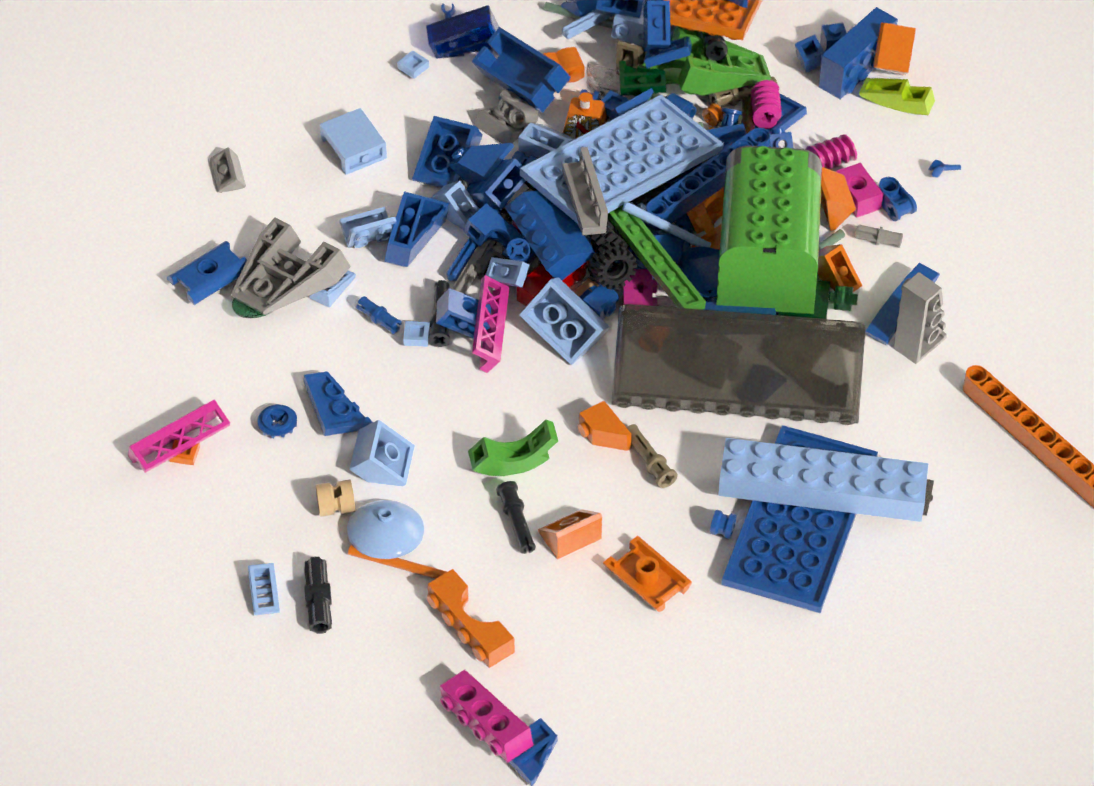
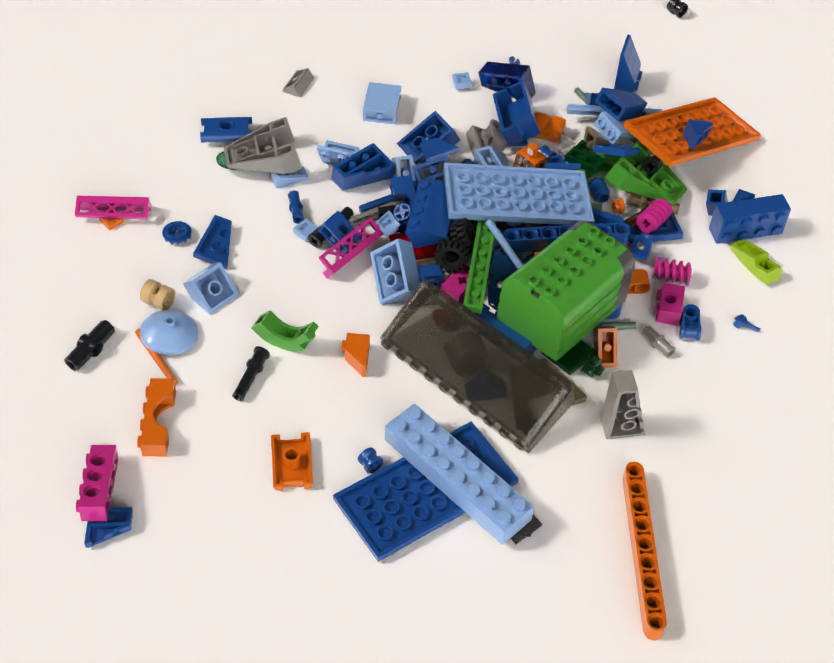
camera: 35 degrees right, 0 degrees up
(263, 570) = (63, 316): light blue slope -> none
(572, 532) = (272, 405): orange slope -> none
(586, 194) = (464, 199): light grey fence -> none
(655, 463) = (368, 394): dark tan pin -> none
(656, 24) = (618, 127): blue panel -> none
(730, 117) = (625, 211): blue bush -> none
(835, 198) = (644, 295): orange slope -> none
(885, 322) = (648, 387): blue slope -> none
(894, 48) = (774, 227): orange slope -> none

